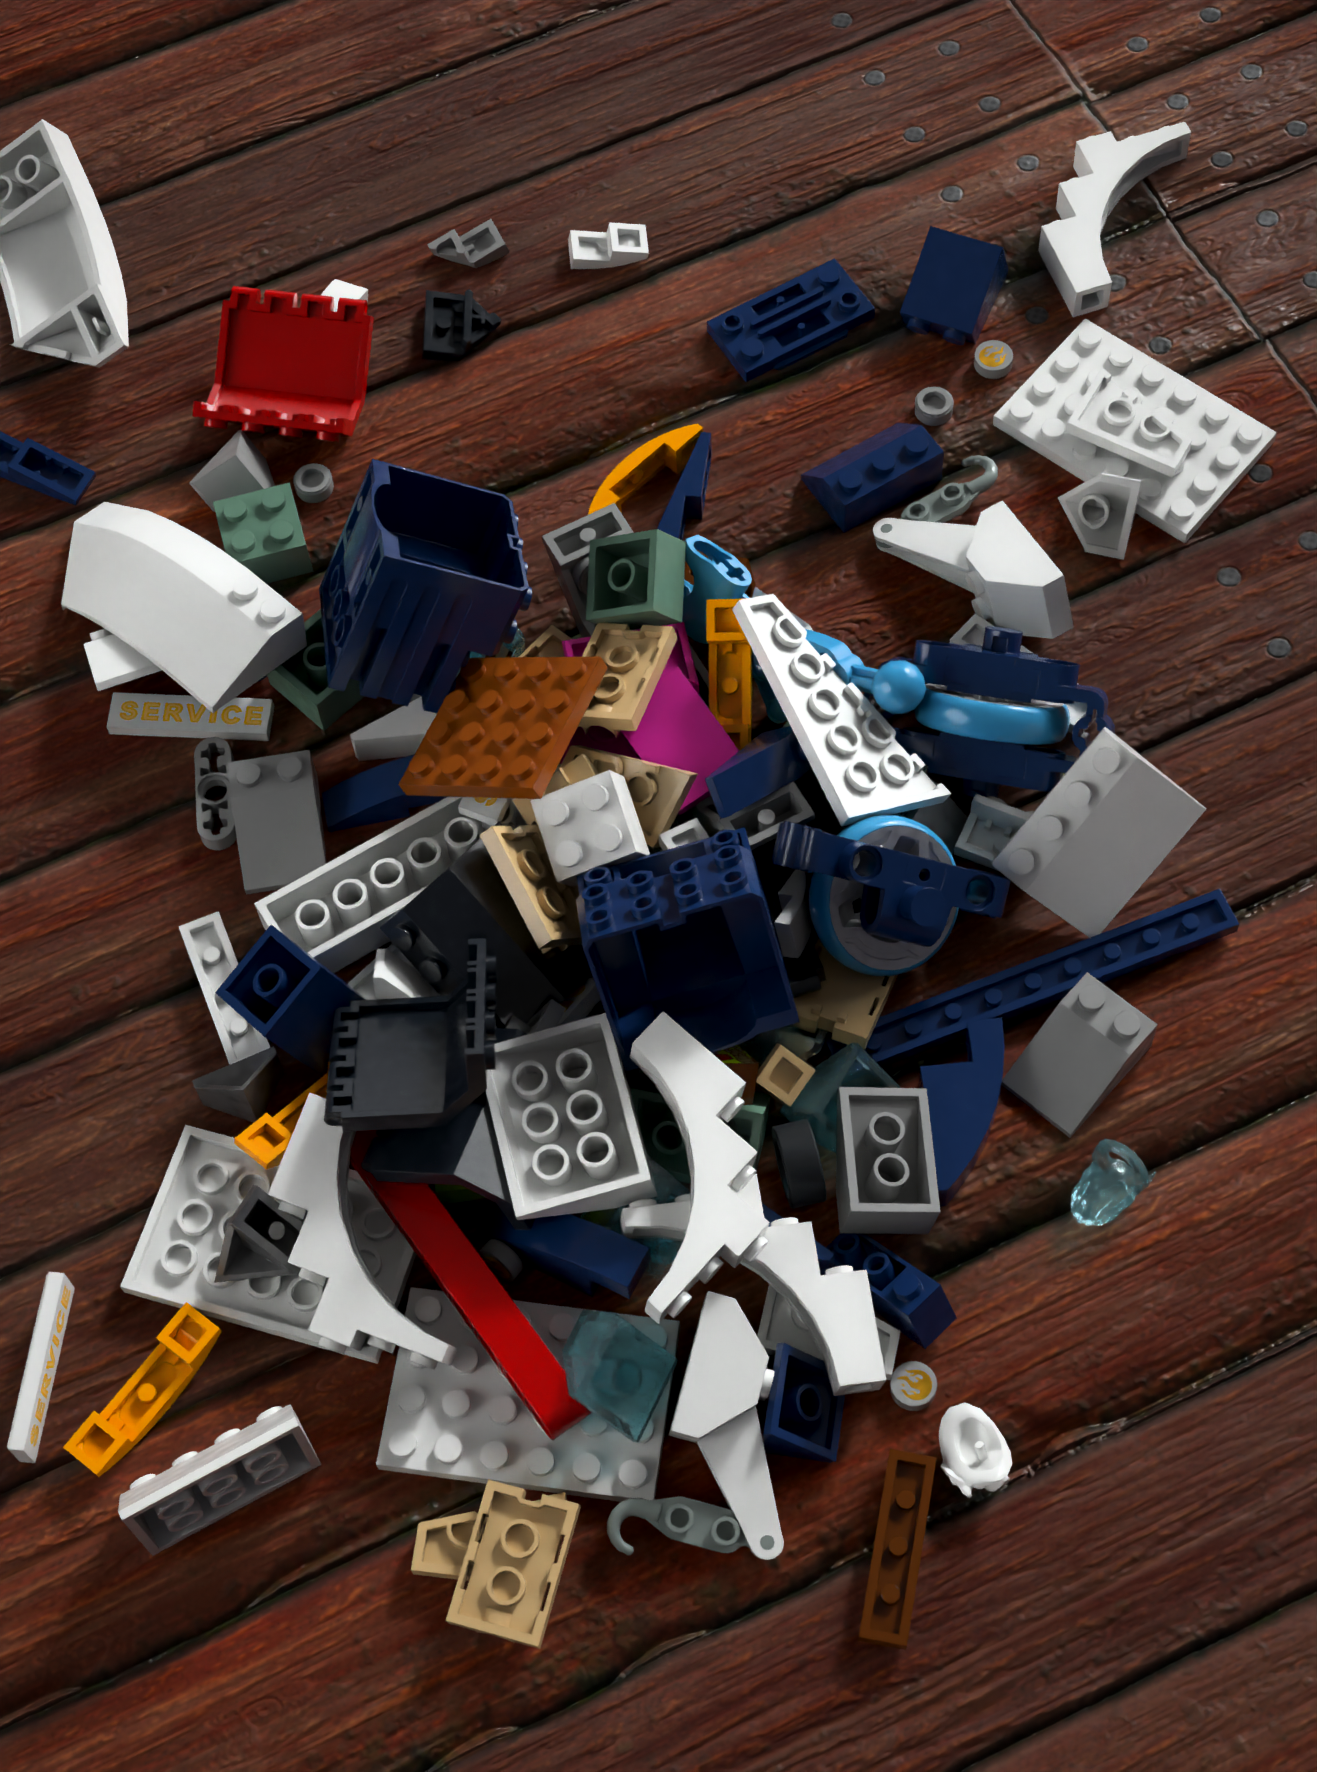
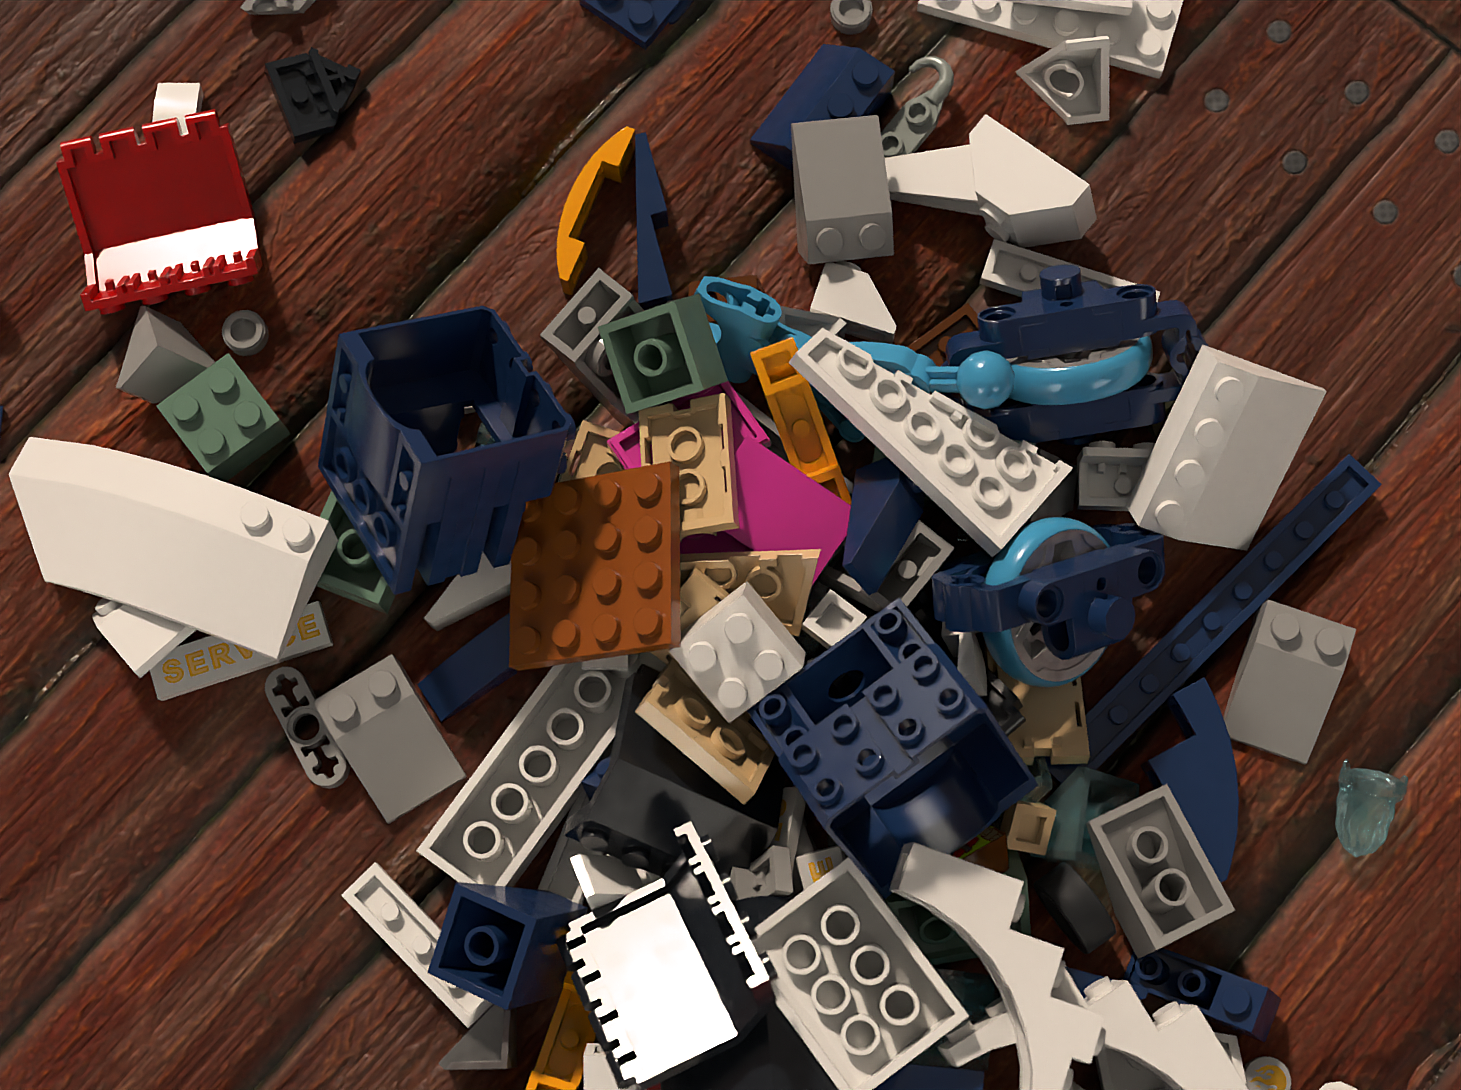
camera: 25 degrees left, 15 degrees up
(827, 612) = (853, 297): none -> white slope
(854, 523) = (841, 190): none -> light grey slope

